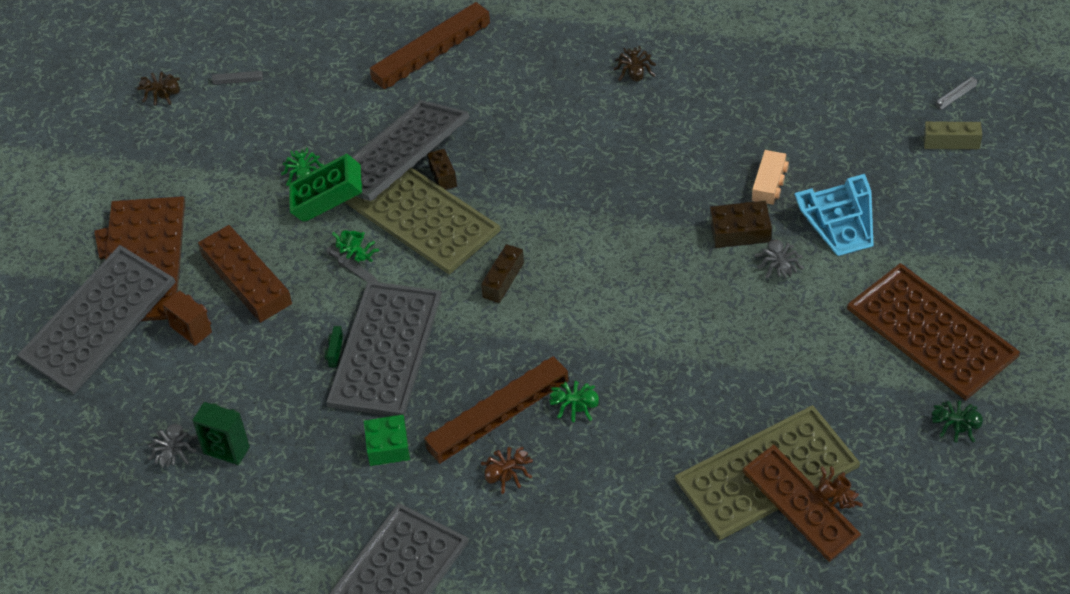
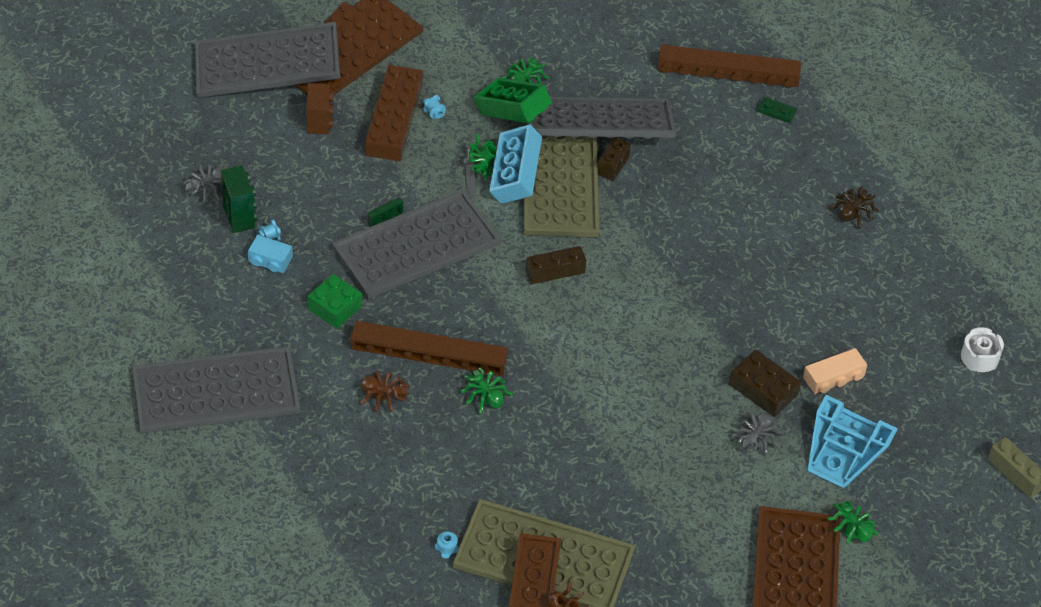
camera: 40 degrees right, 0 degrees up
(268, 245) = (434, 107): none -> medium azure brick
(268, 438) = (270, 231): none -> medium azure brick
(291, 452) = (270, 254): none -> medium azure brick
(386, 229) = (515, 164): none -> medium azure brick
(498, 48) = (777, 110): none -> dark green plate
(696, 528) = (447, 544): none -> medium azure brick
(834, 83) = (982, 350): none -> white brick
(918, 260) = (856, 526): none -> green animal

